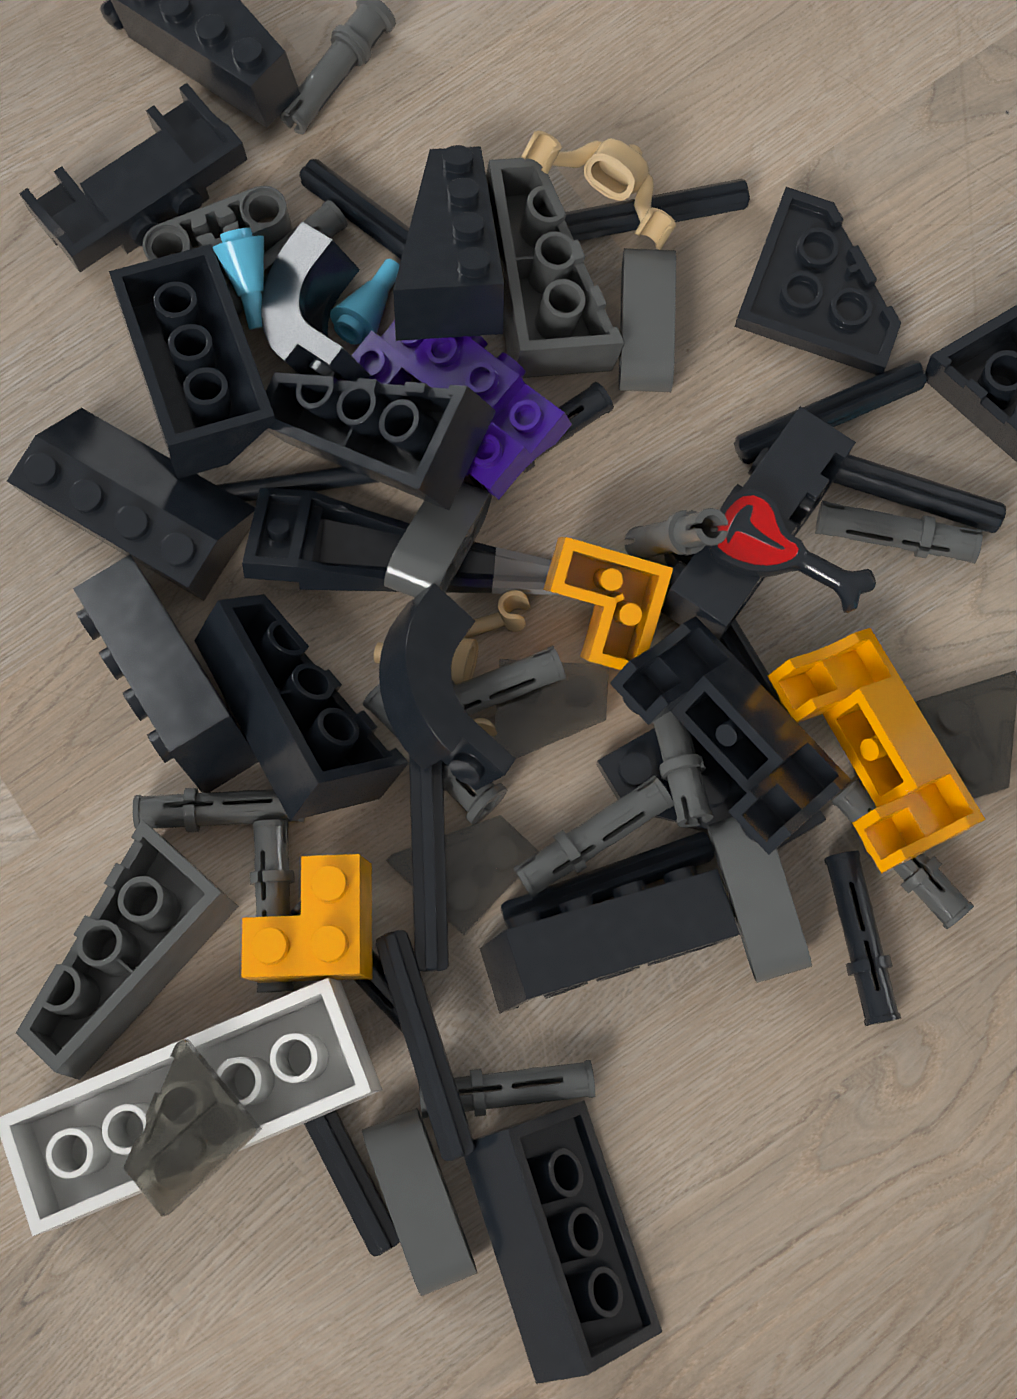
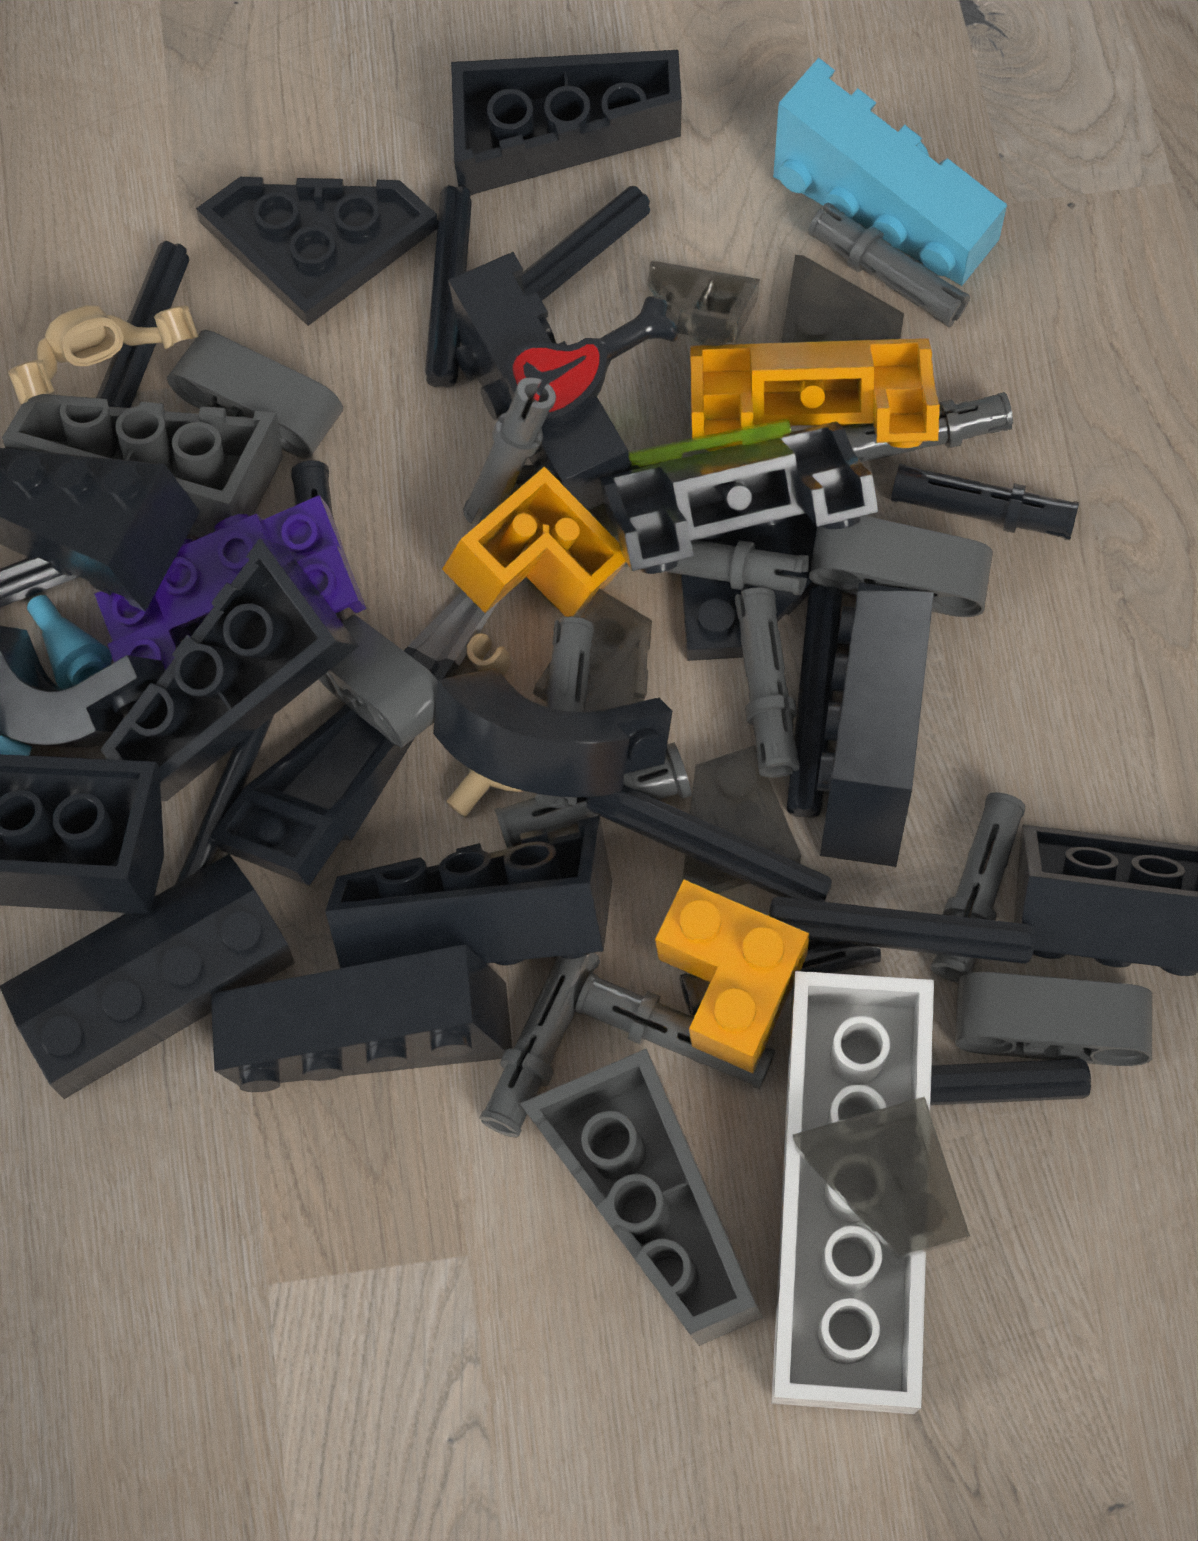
camera: 60 degrees left, 10 degrees down
(794, 711) = (676, 449): none -> clear neon green piece
(912, 534) = (620, 267): dark grey pin -> none
(922, 619) = (703, 301): none -> clear smoke wing

